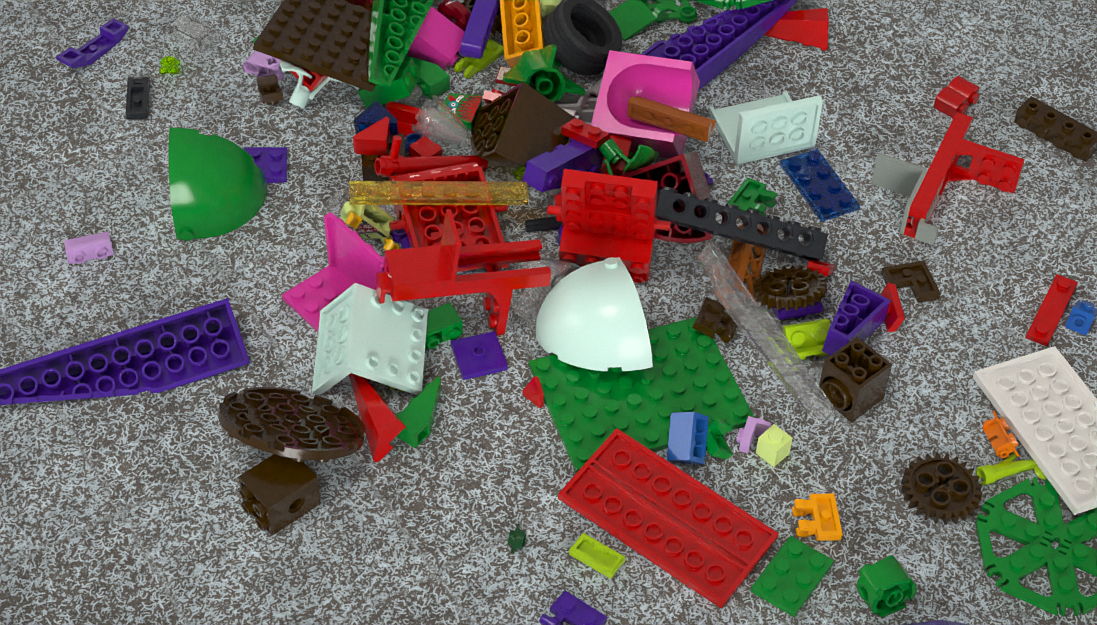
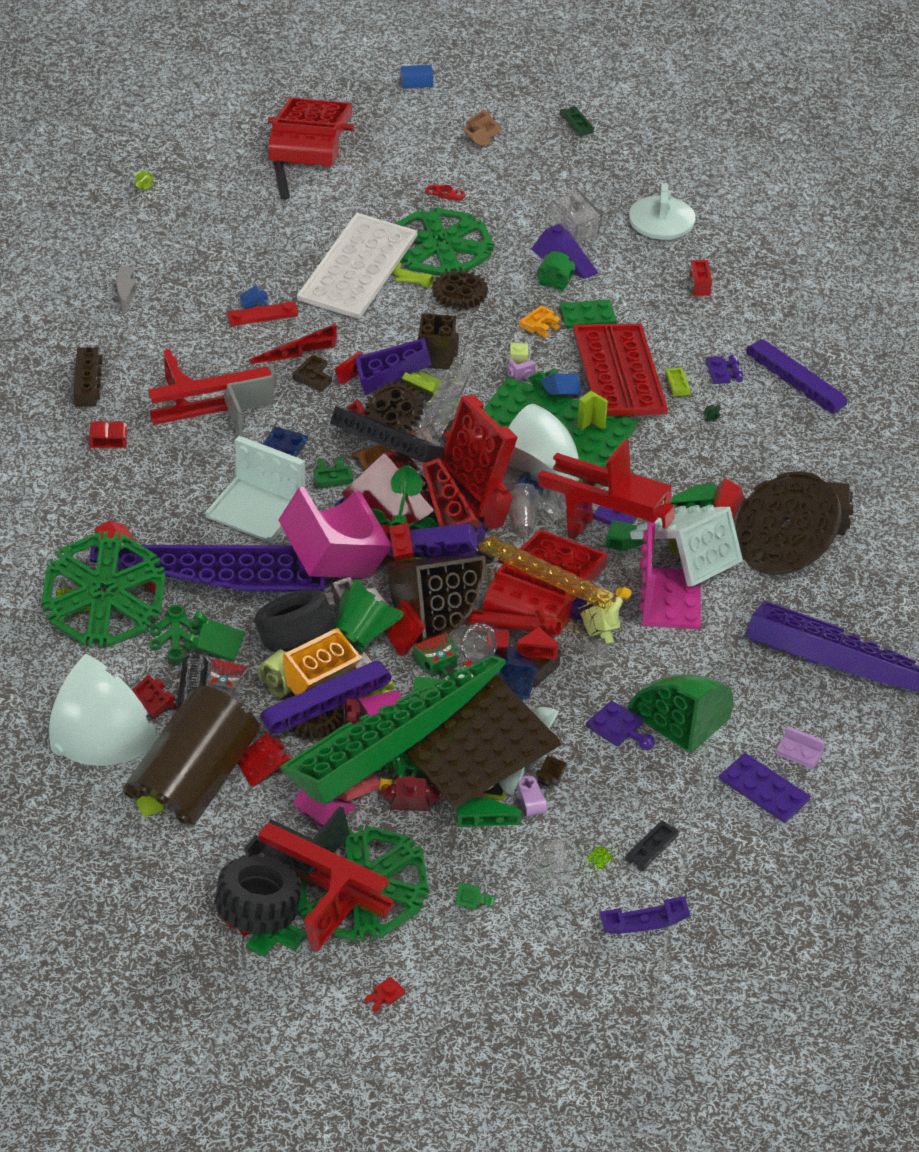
camera: 135 degrees left, 5 degrees down
(91, 199) = (764, 787): none -> dark purple plate
(609, 407) = (592, 410): none -> lime panel
(670, 118) = (339, 509): dark orange fence -> none
(961, 297) = (317, 340): none -> red wedge
(1005, 442) = (398, 279): orange hinge -> none

